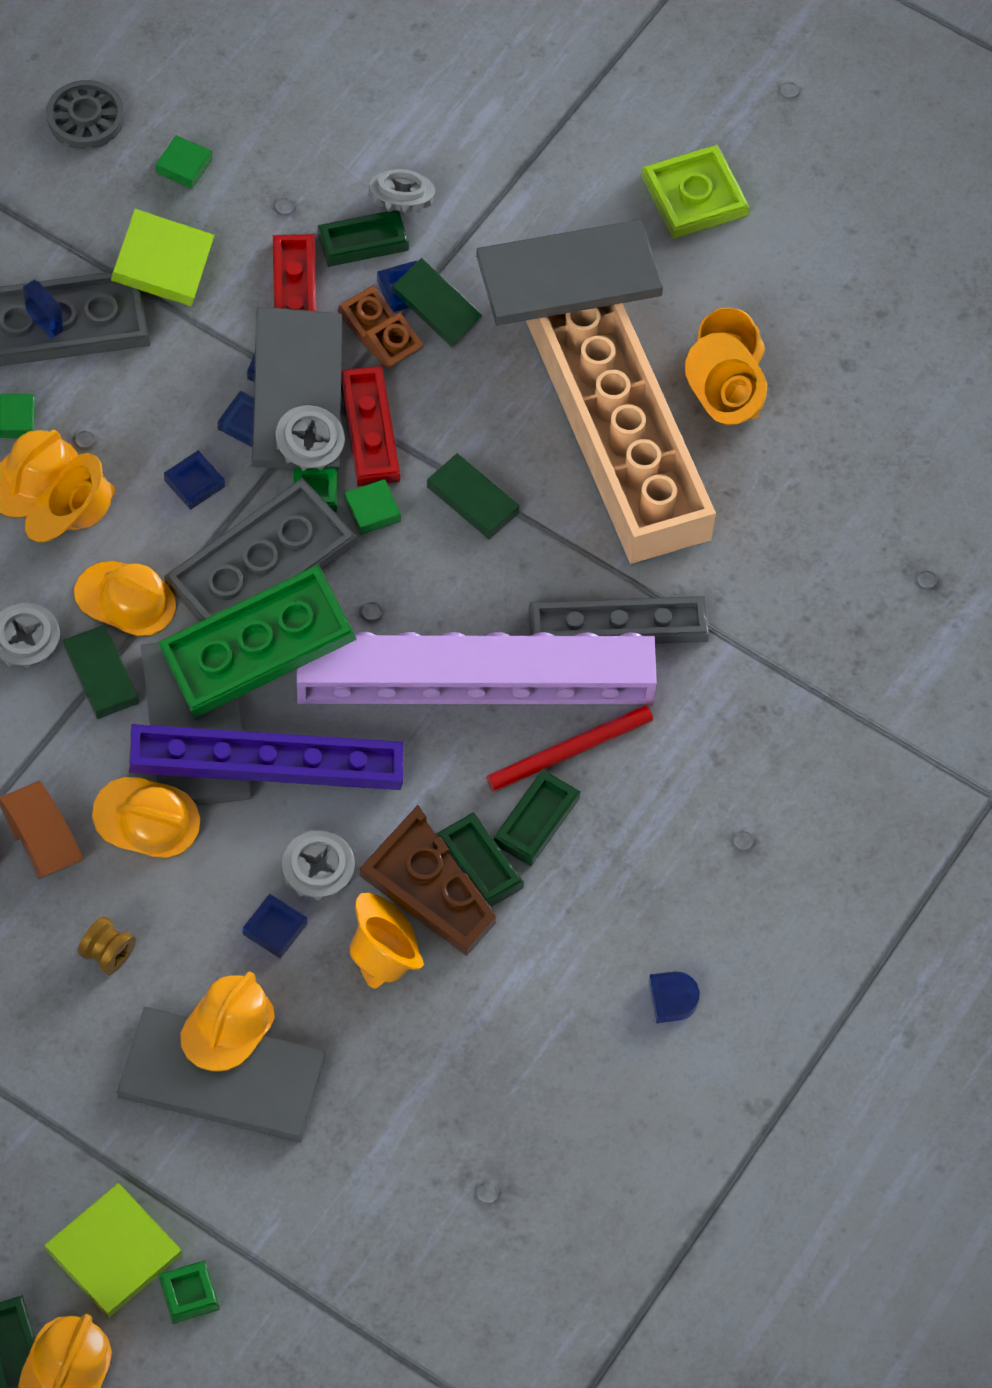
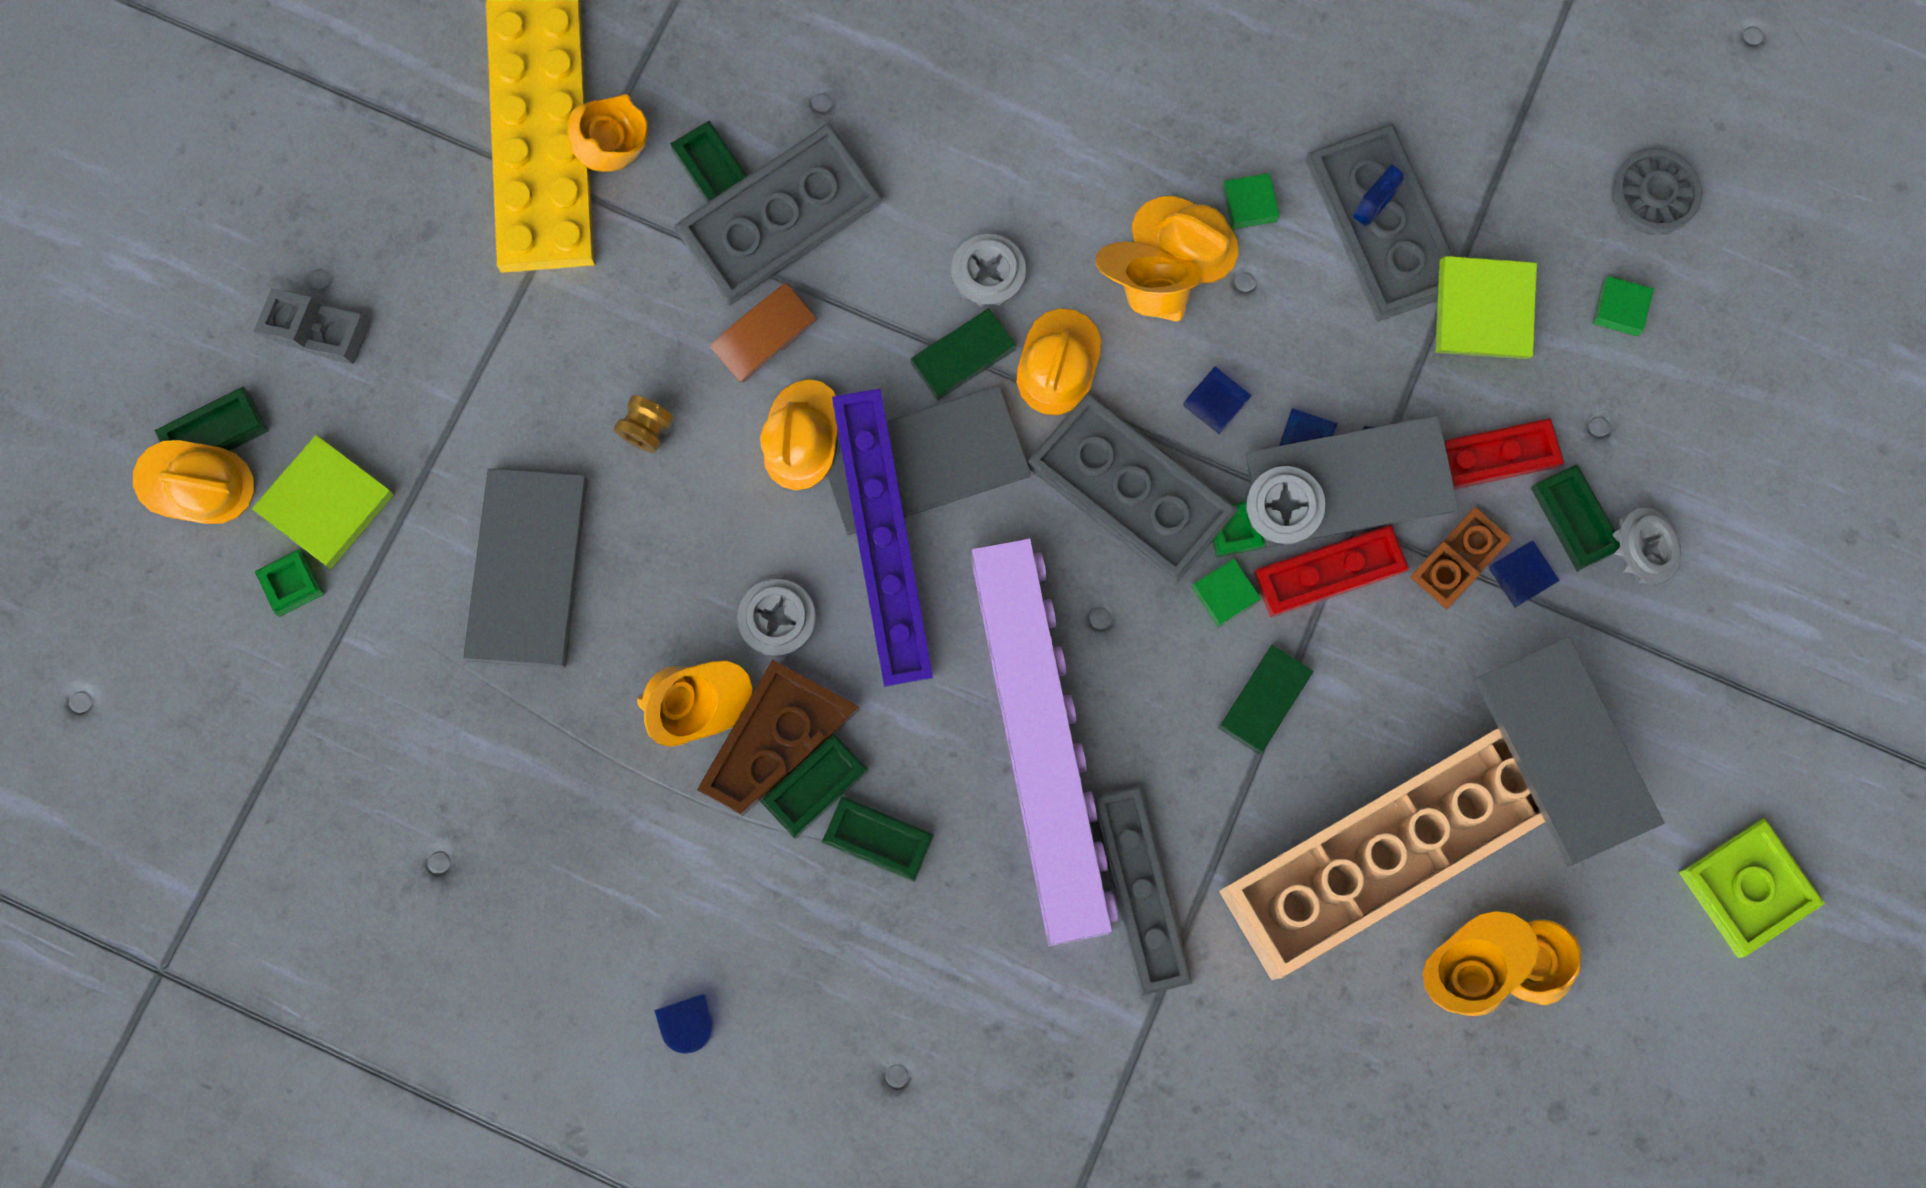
camera: 80 degrees right, 15 degrees up
(227, 1023) = (575, 561): light orange piece -> none
(257, 641) = (1015, 499): green tile -> none
(275, 926) = (701, 588): clear blue tile -> none
(436, 302) = (1506, 612): dark green tile -> none
(569, 748) = (970, 862): red bar -> none

